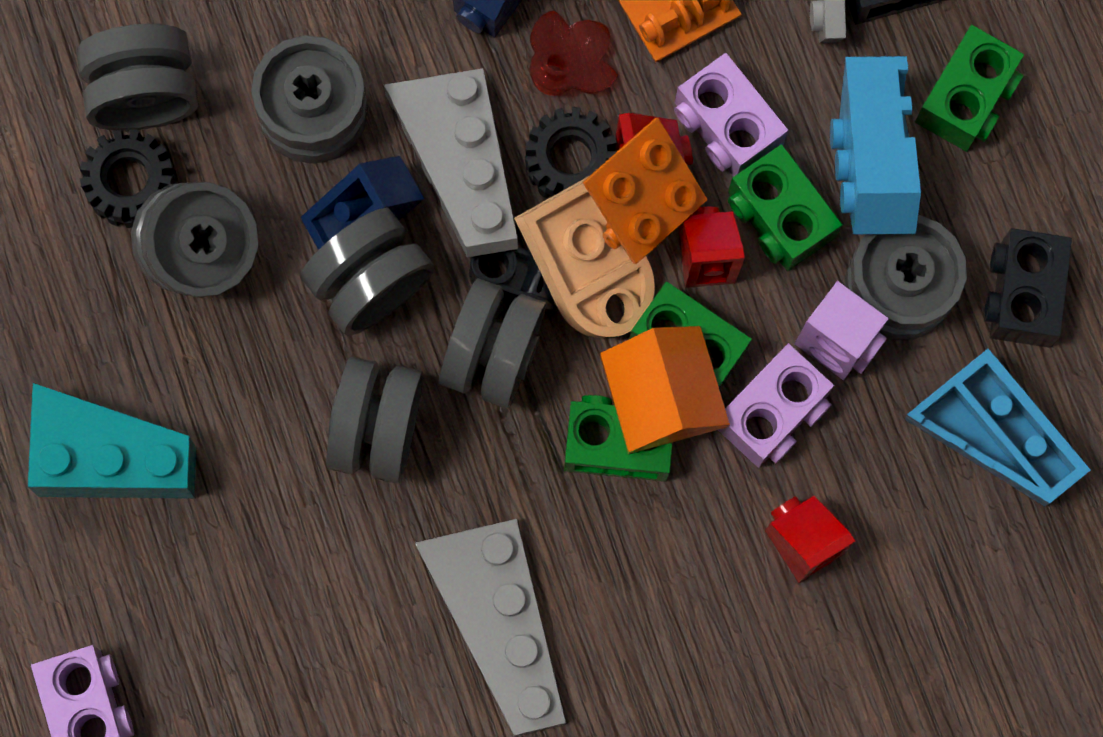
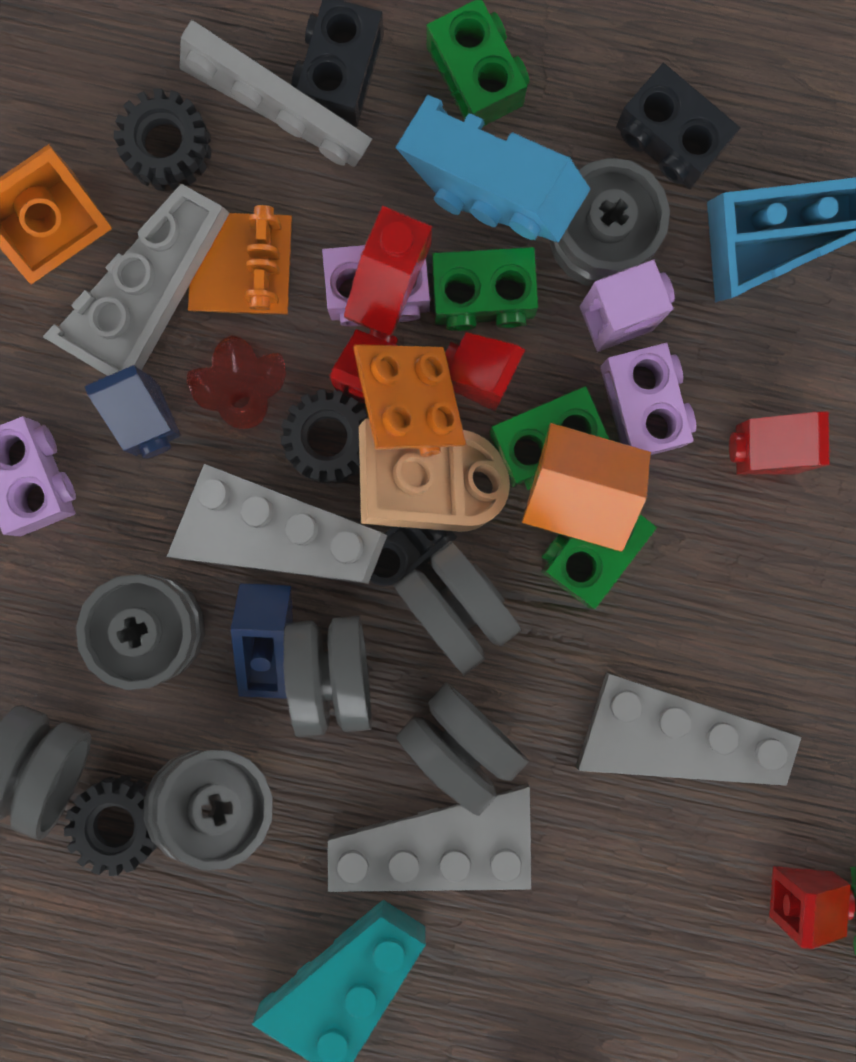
camera: 60 degrees left, 10 degrees up
(272, 467) = (438, 850): none -> light grey wing
(739, 113) = (388, 271): none -> red slope

